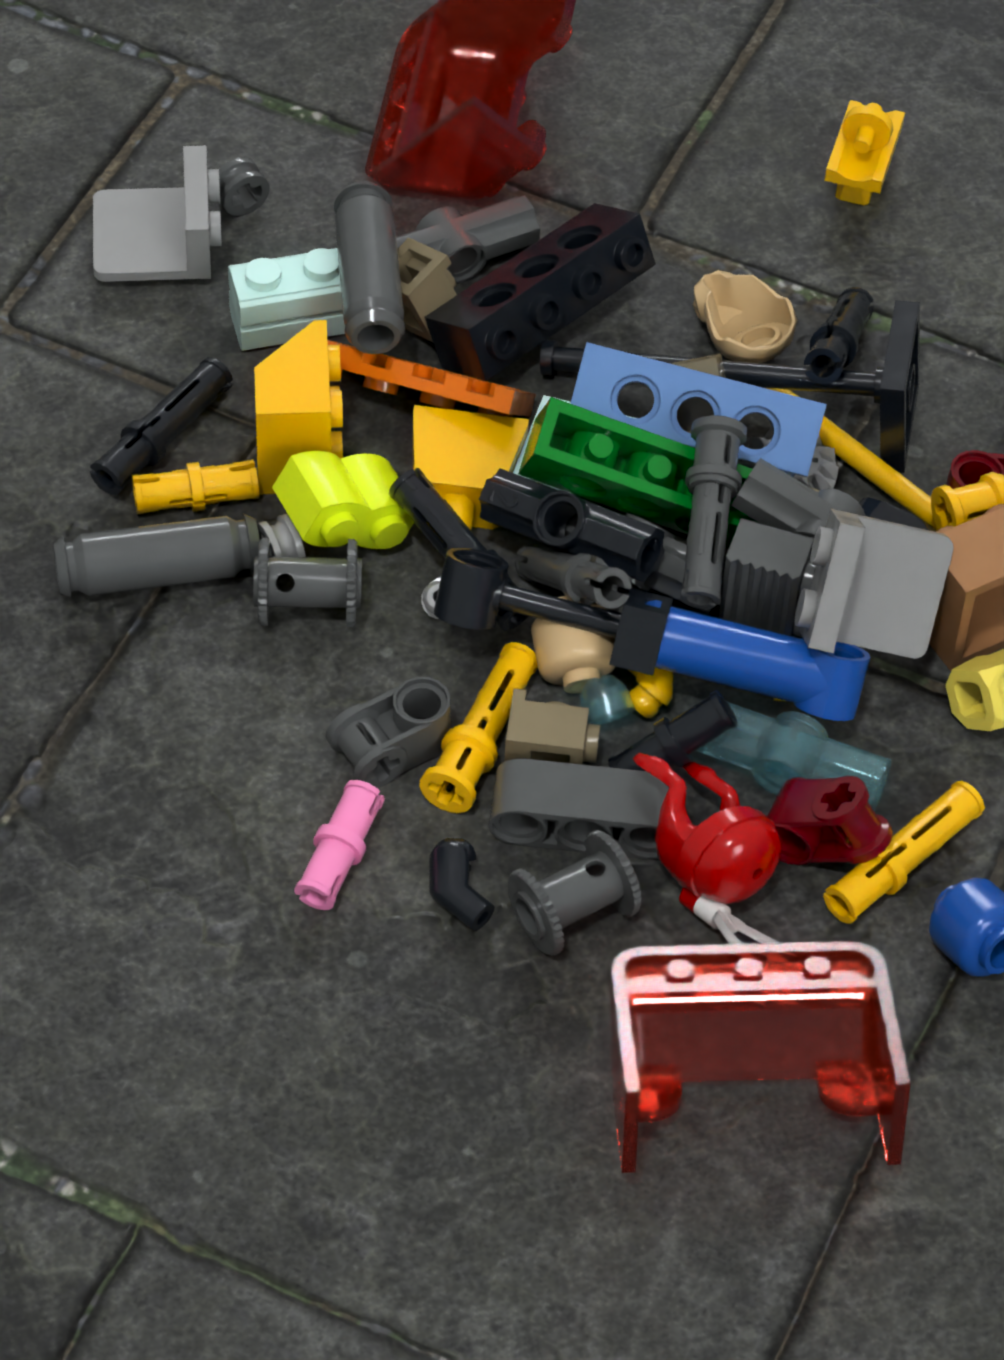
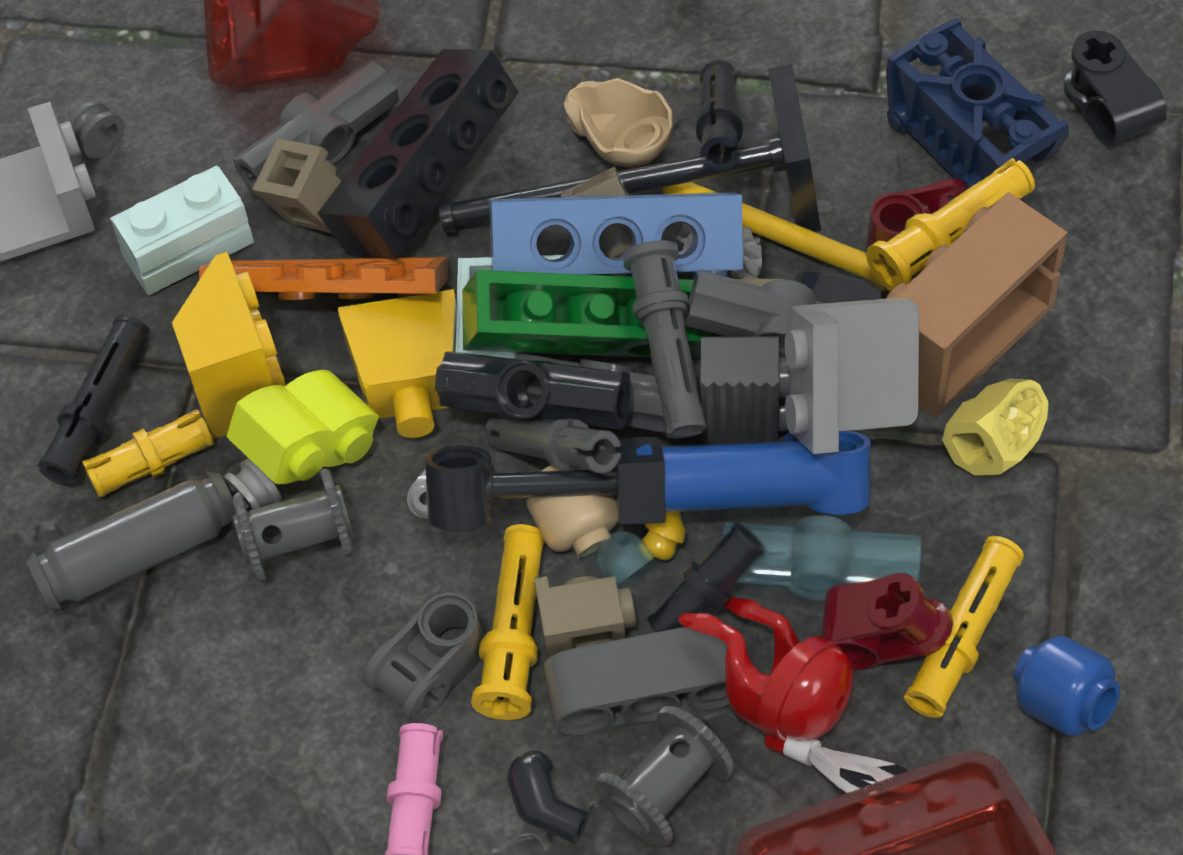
camera: 10 degrees left, 5 degrees up
(369, 267) = (250, 183): dark grey axle -> none
(442, 525) = (406, 425): black pin -> none

